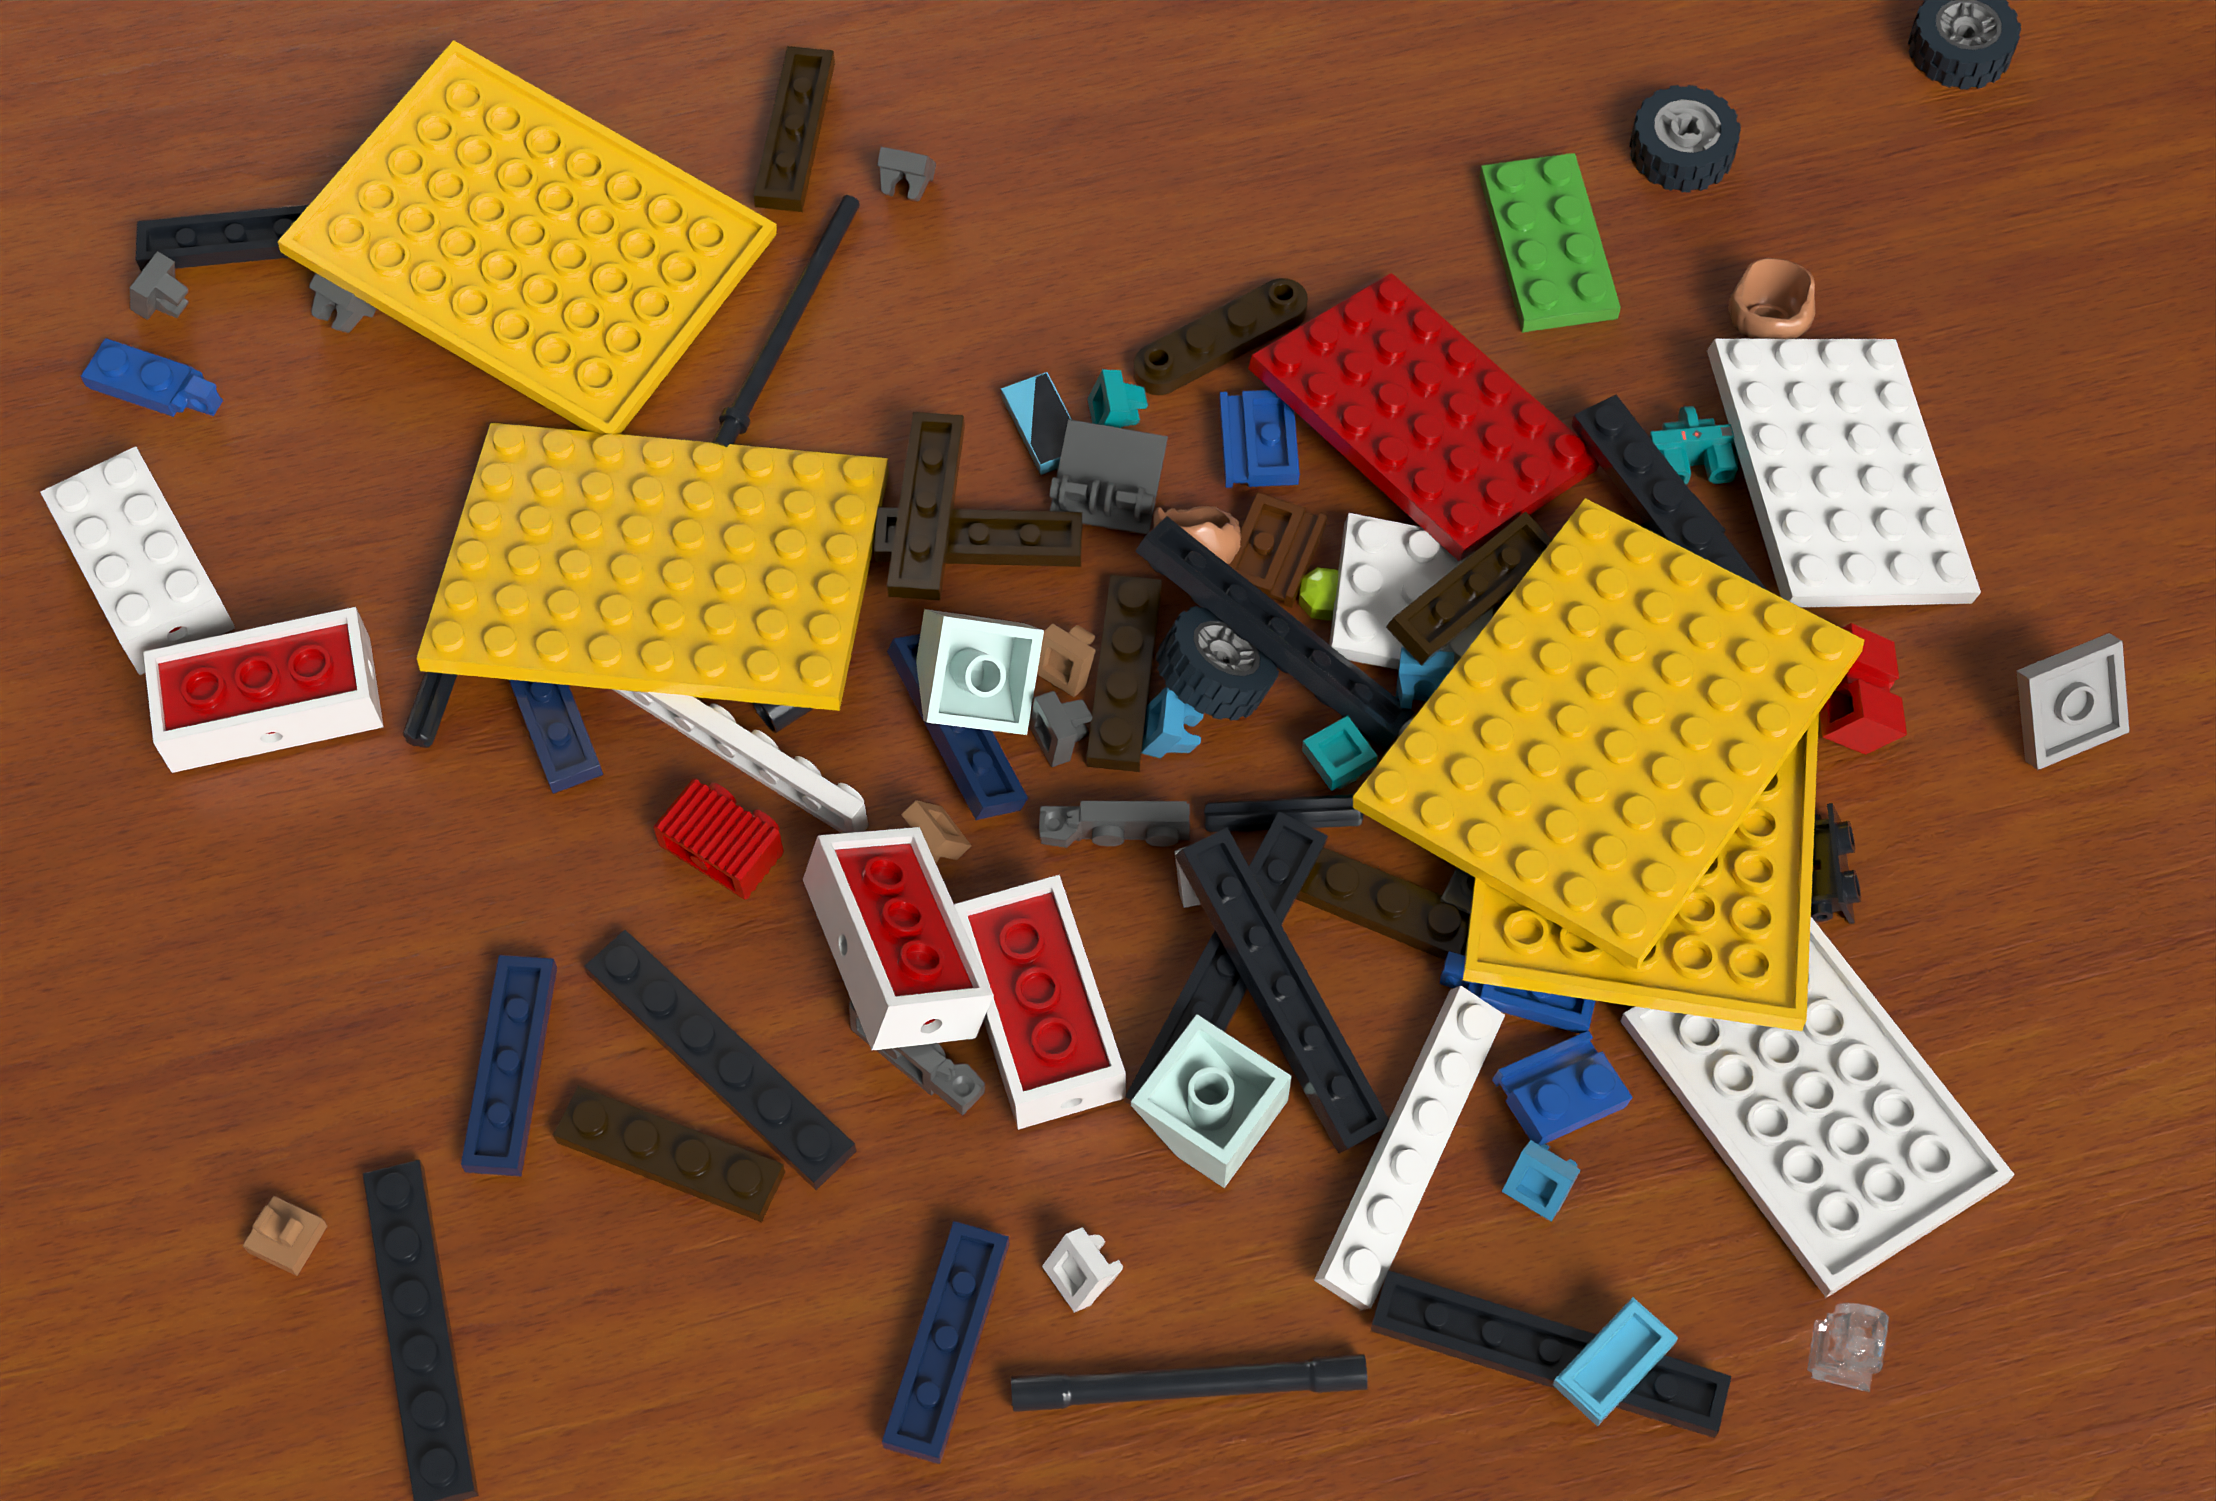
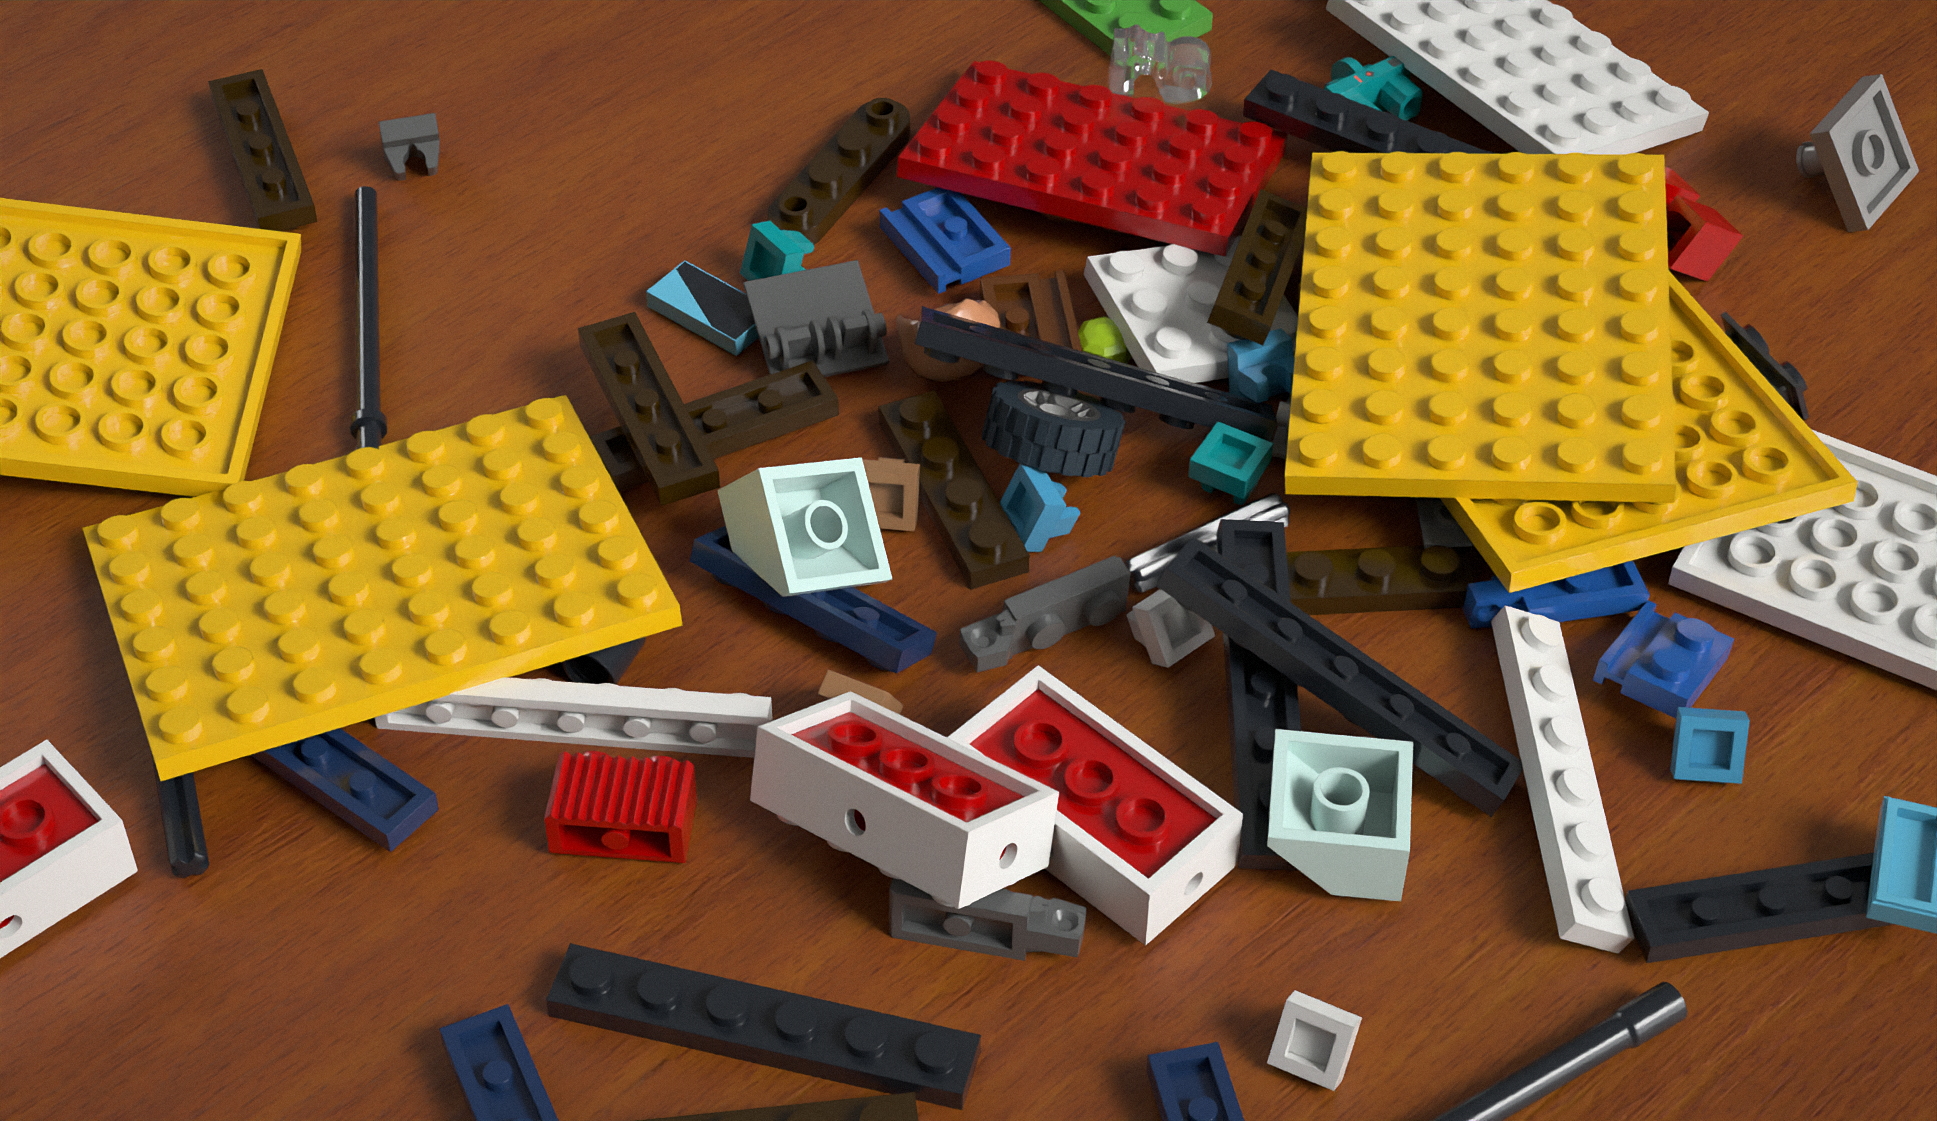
camera: 30 degrees left, 15 degrees down
(1058, 726) = (922, 556): dark grey tile -> none
(1547, 350) = (1177, 66): none -> clear leg

